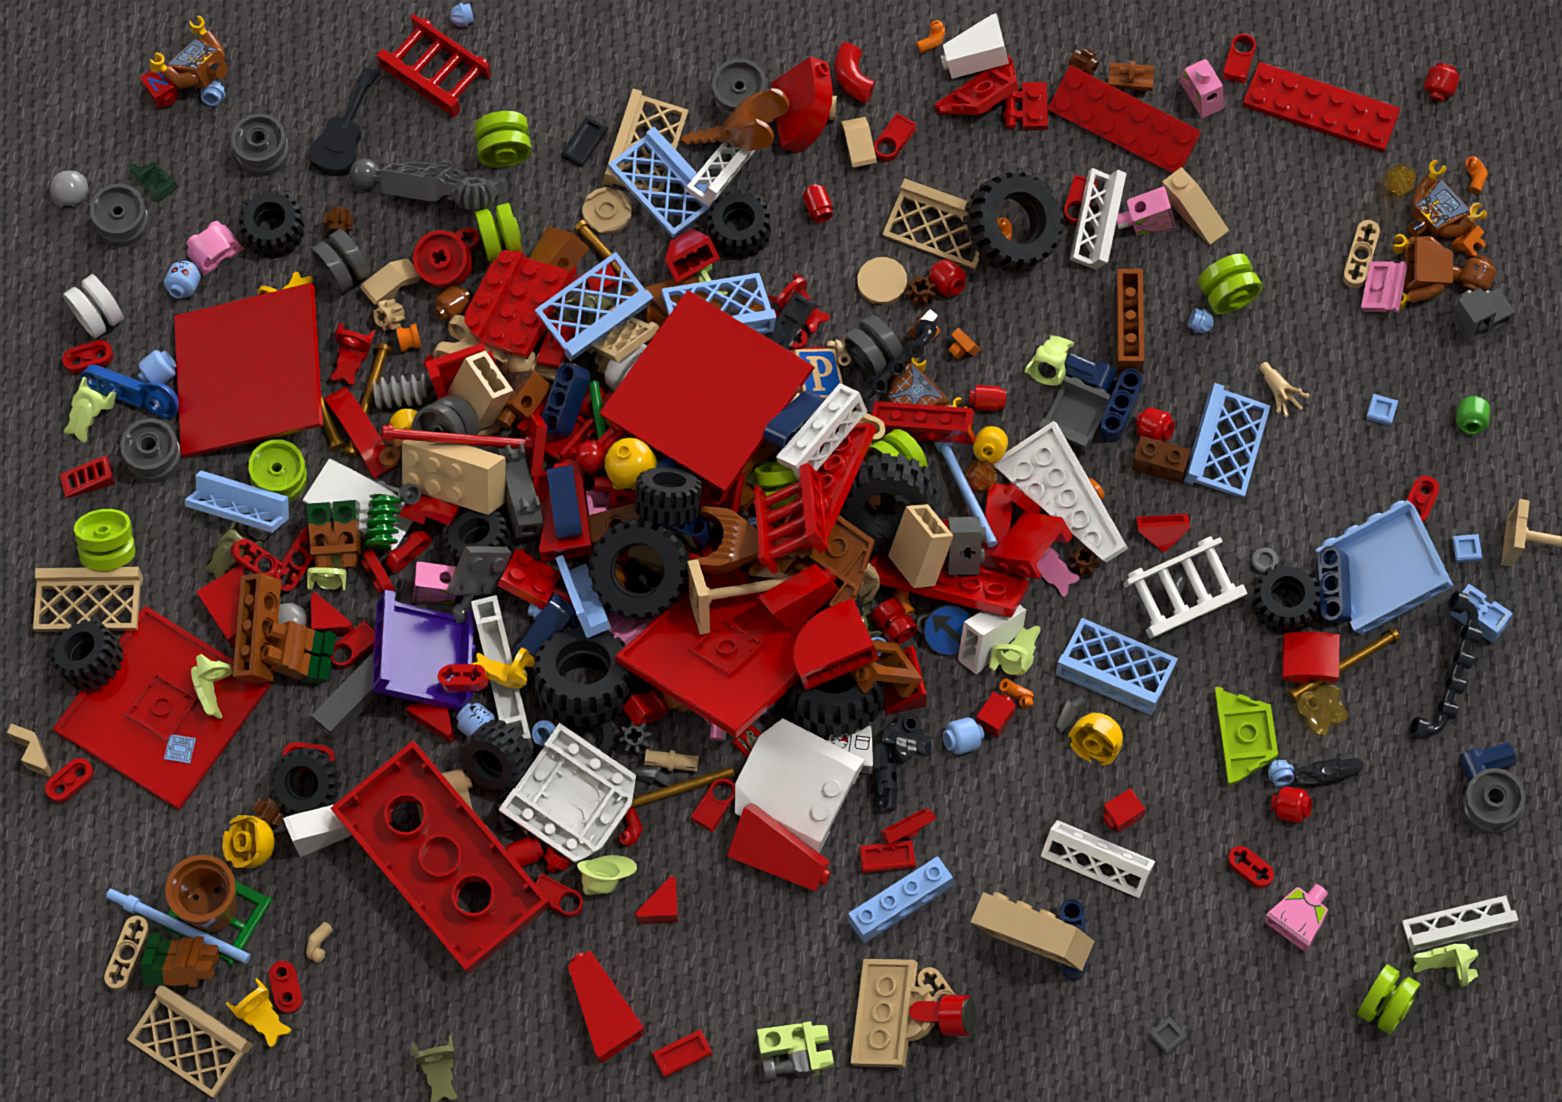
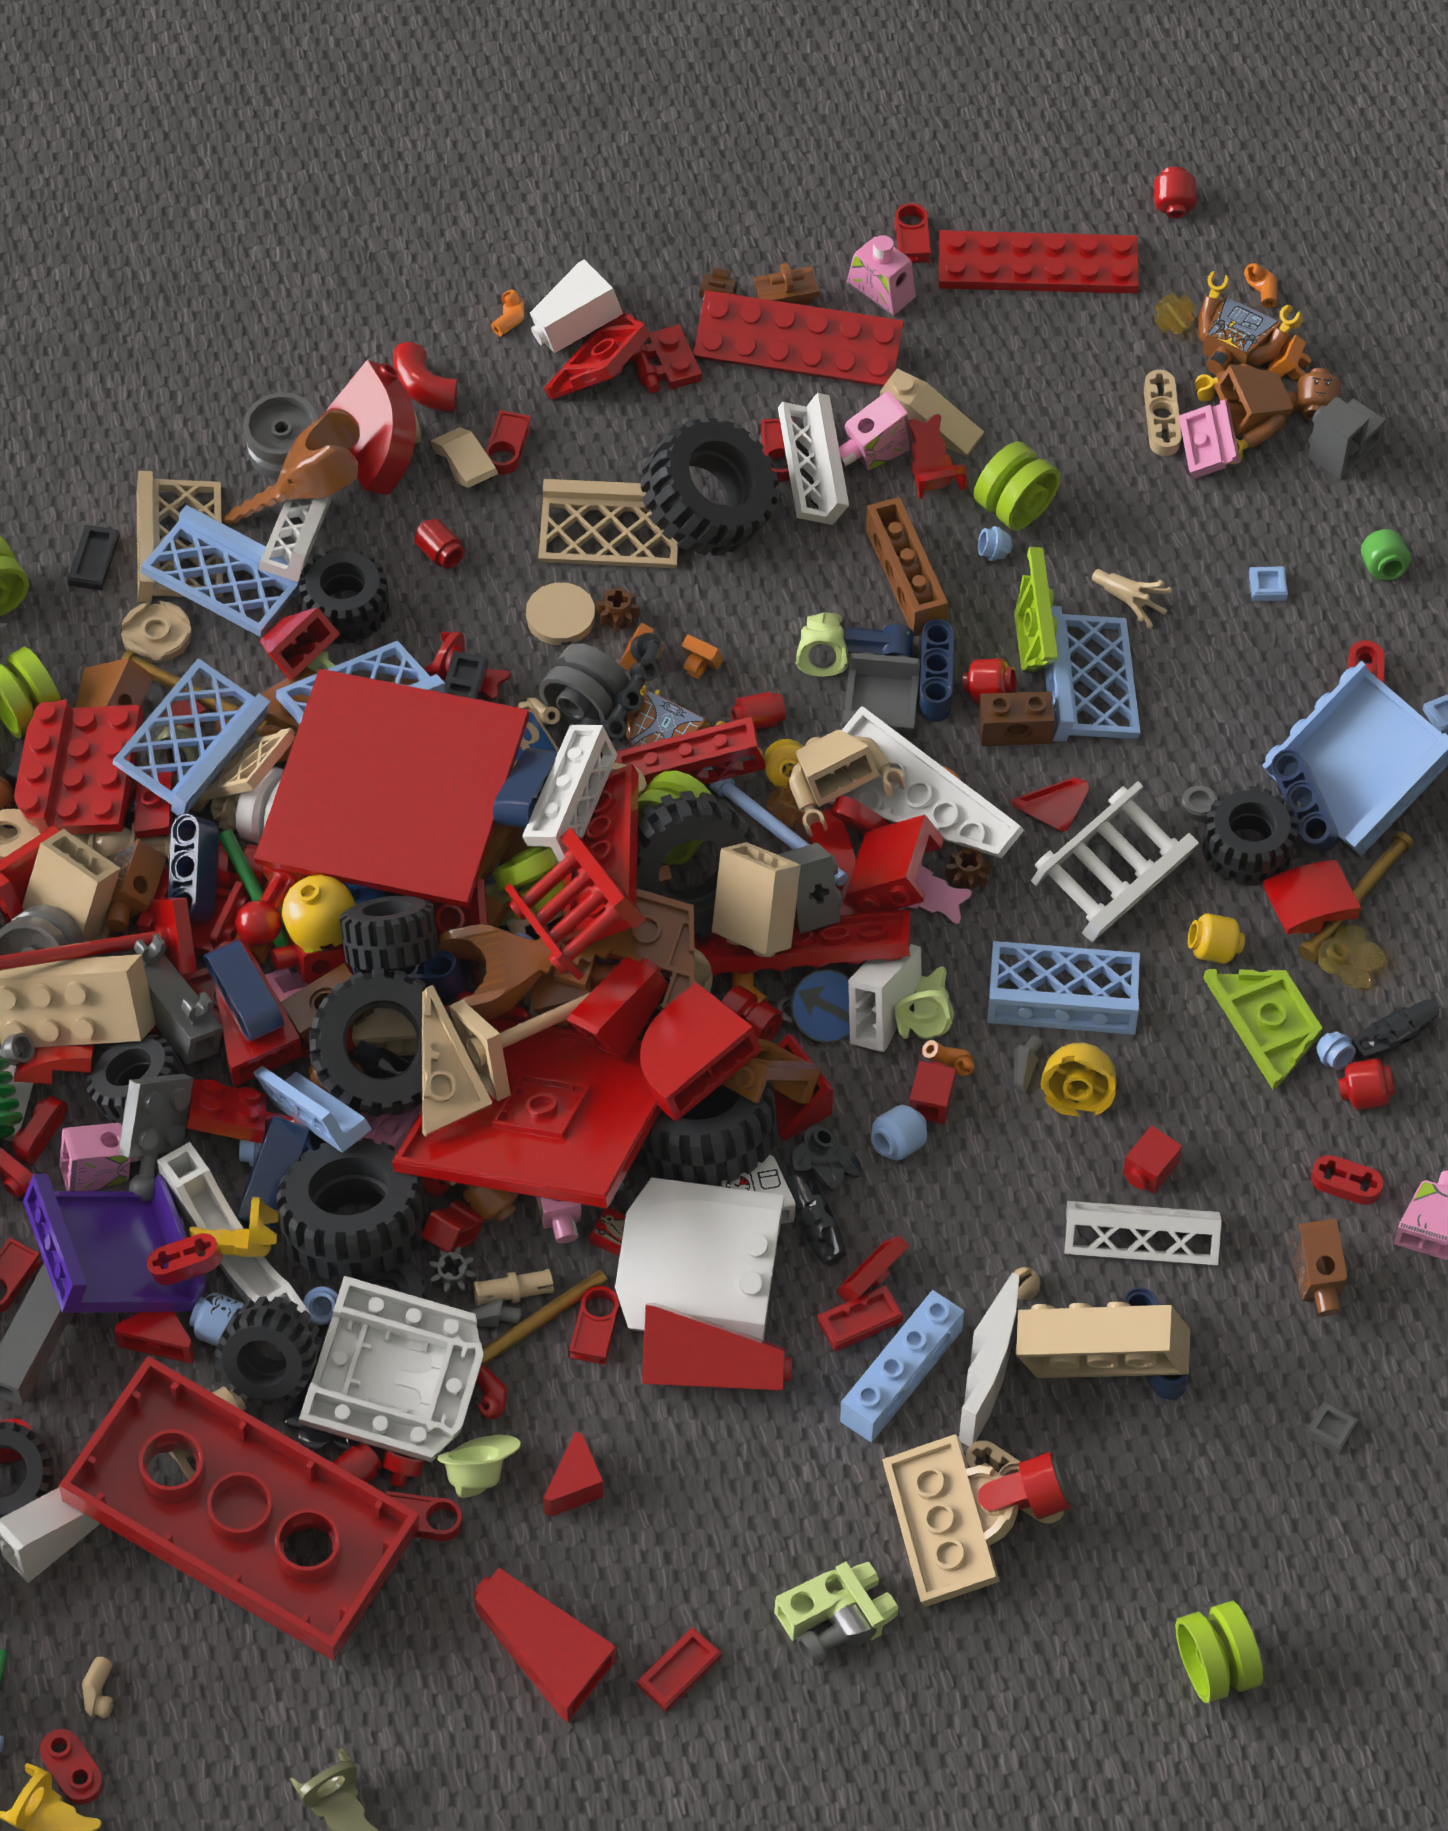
camera: 25 degrees left, 10 degrees down
(671, 611) = (448, 1077): none -> tan wing
(947, 277) = (648, 582): red head -> none
(958, 918) = (989, 1361): none -> white slope
(1009, 871) = (1030, 1285): none -> tan hinge
(1016, 462) = (834, 767): none -> tan torso
(1179, 247) = (931, 464): none -> red hair
(1203, 382) = (1034, 618): none -> lime wing
(1203, 913) = (1319, 1264): none -> dark orange torso
(1232, 665) = (1215, 938): none -> yellow head

